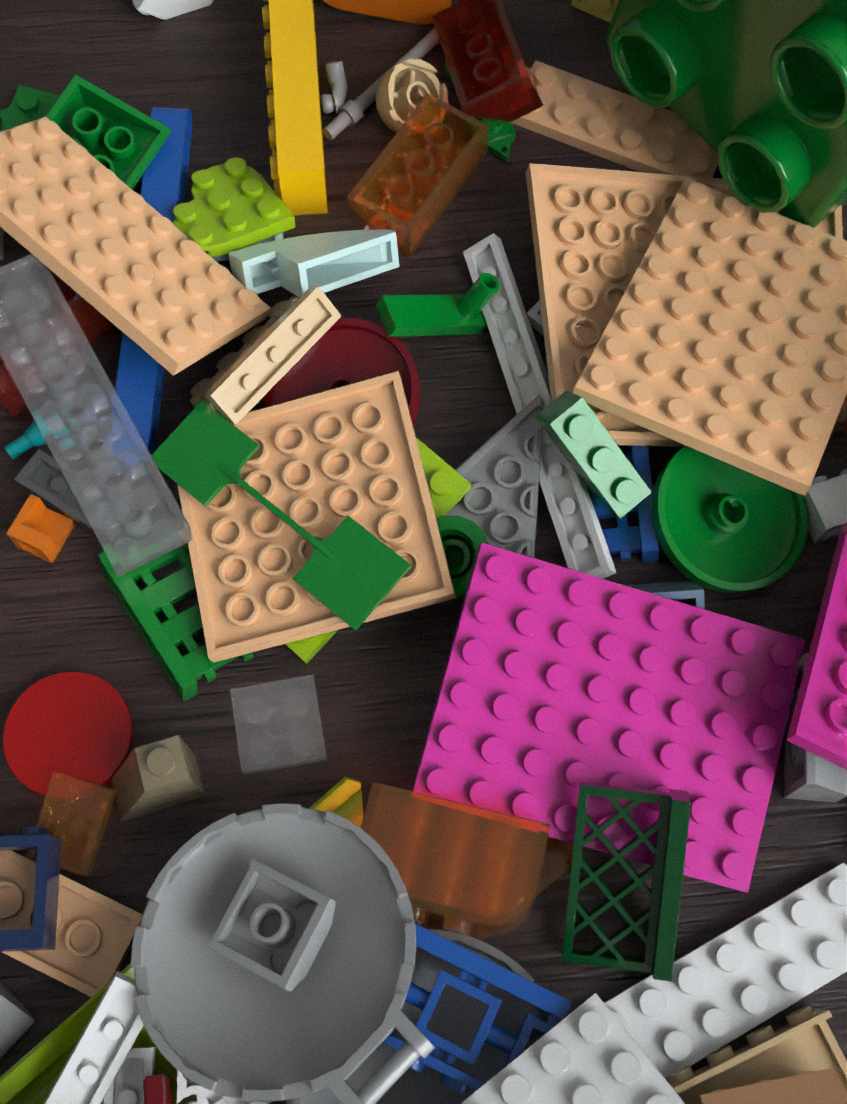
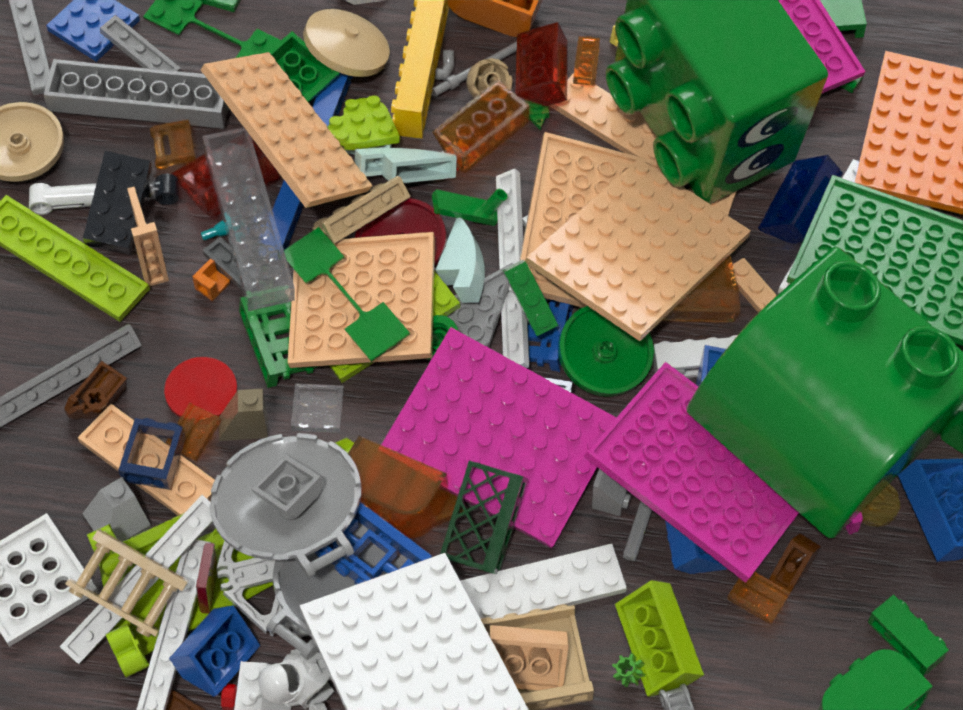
camera: 15 degrees right, 10 degrees down
(168, 80) = (346, 42): none -> tan dish
(456, 413) = (462, 263): none -> light aqua slope
(550, 39) = (586, 60): none -> clear orange plate

